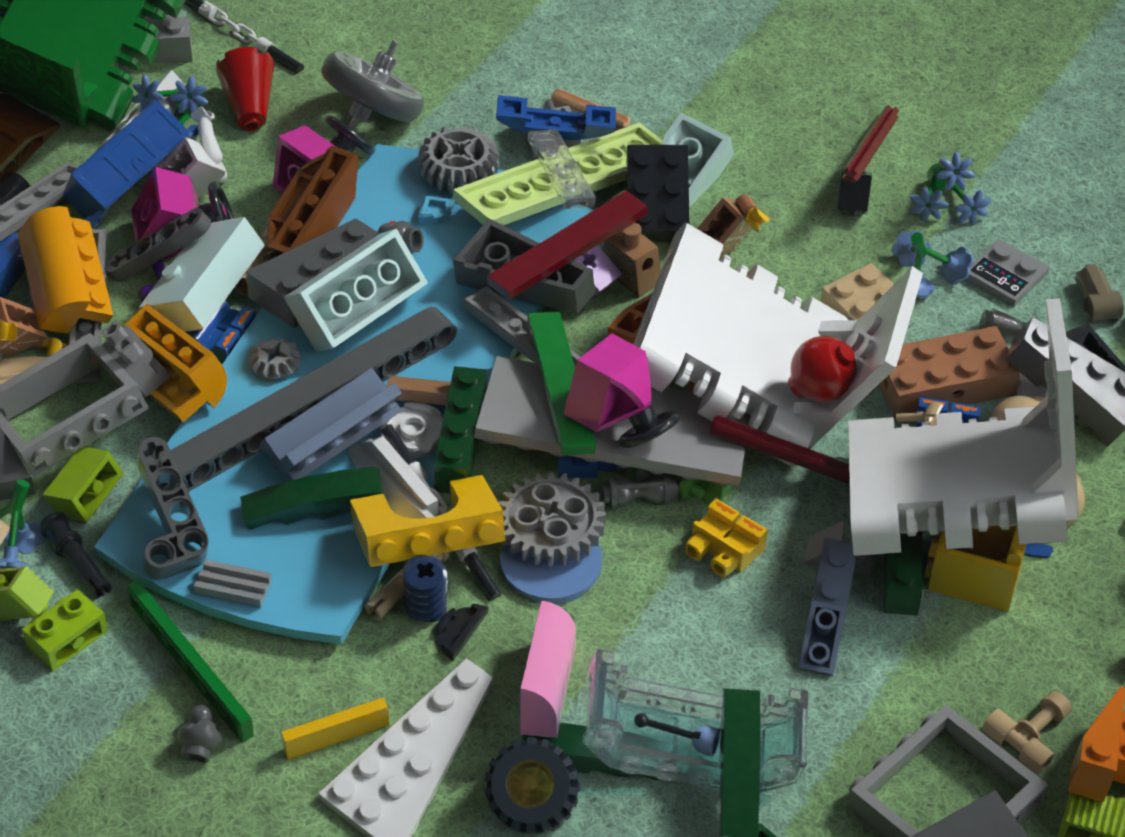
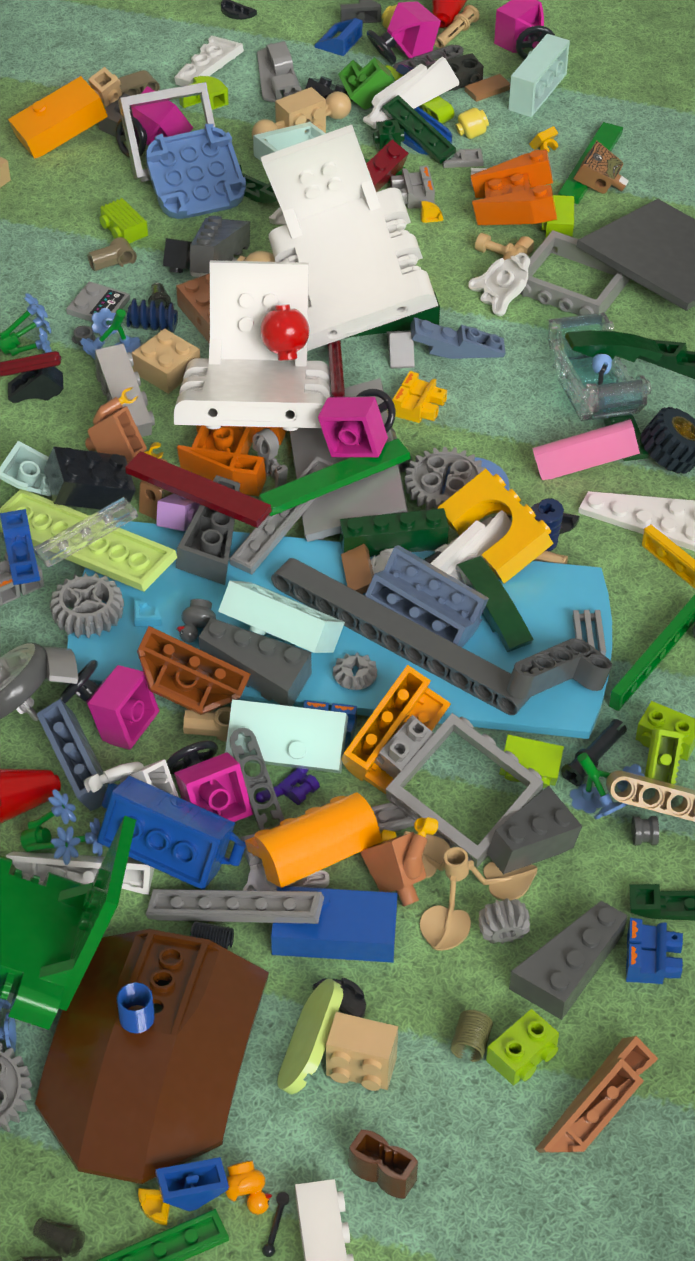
camera: 105 degrees left, 0 degrees up
(257, 135) = (72, 751): none -> sand blue brick
(376, 113) = (61, 665): none -> light grey slope
(811, 251) = (116, 374): none -> light grey wedge
(939, 692) = (502, 282): none -> white tile
(943, 243) = (82, 332): none -> dark grey plate
(959, 307) = (151, 315): none -> dark blue piece

